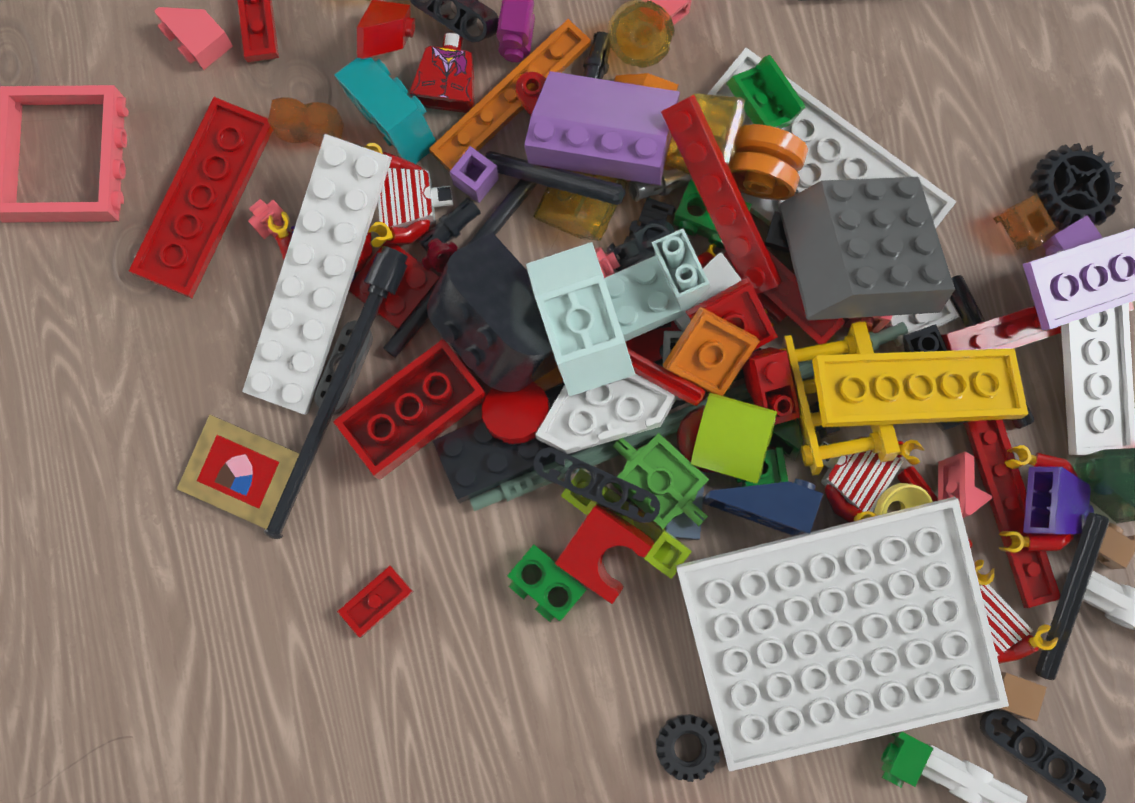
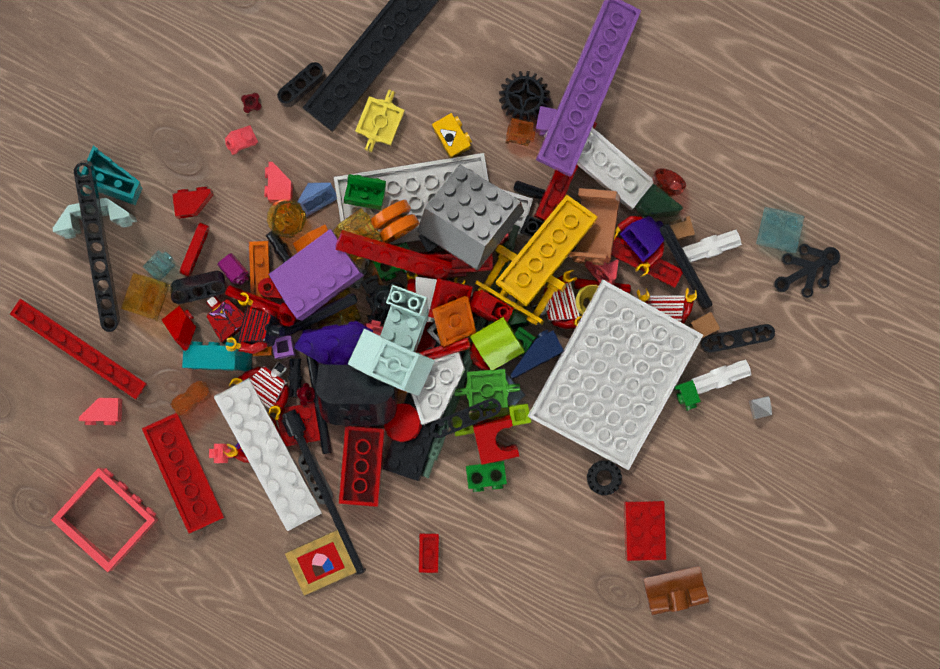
camera: 45 degrees left, 5 degrees up
(467, 117) = (257, 328): none -> torso
(515, 135) = (283, 312): none -> red axle
(533, 223) = (332, 343): none -> dark purple plate
(700, 52) = (316, 197): none -> medium blue slope
(869, 42) = (380, 121): none -> light yellow plate
(938, 142) = (451, 135): none -> yellow brick
(994, 446) = (598, 241): none -> nougat panel

